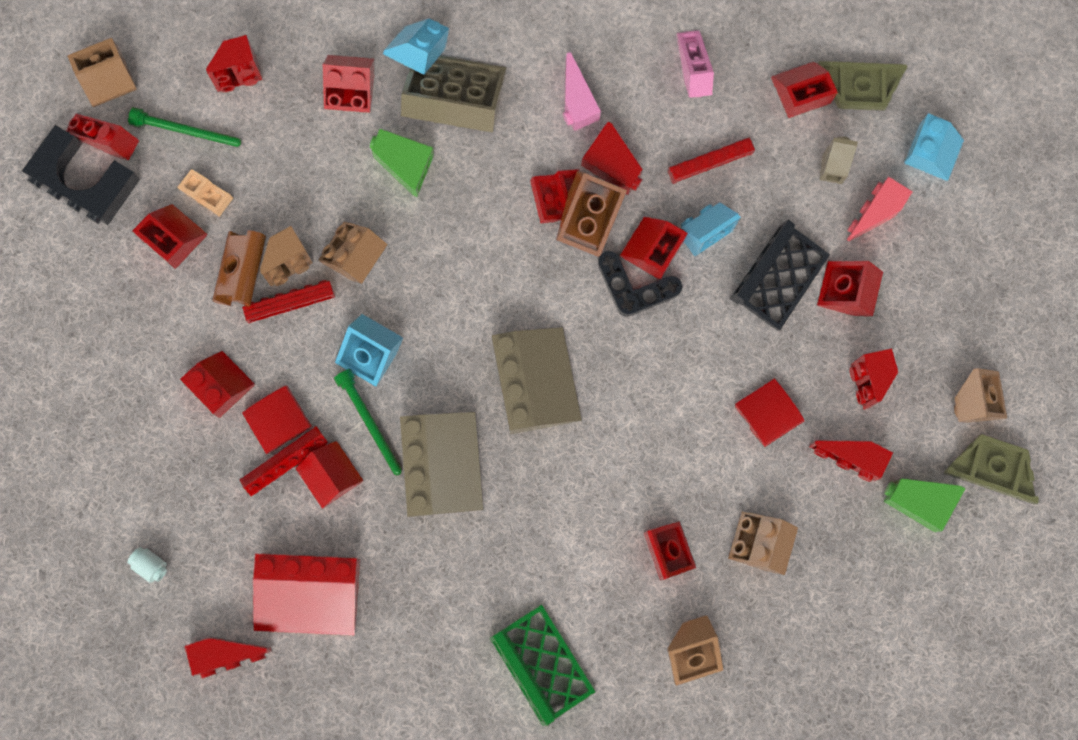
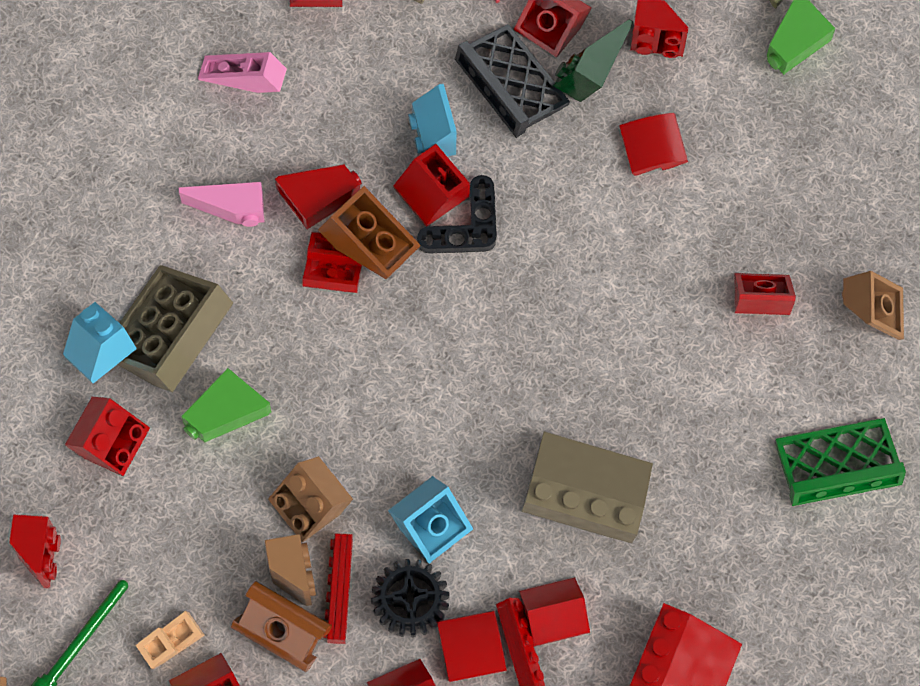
camera: 65 degrees left, 10 degrees down
(307, 353) = (409, 572): none -> black gear
(346, 382) = (458, 556): green piece -> none
(535, 379) = (530, 360): dark tan slope -> none
(711, 160) = (358, 97): red piece -> none
(763, 542) = (786, 199): medium nougat slope -> none
(808, 331) = (589, 69): none -> dark green slope
(861, 456) = (734, 72): red slope -> none

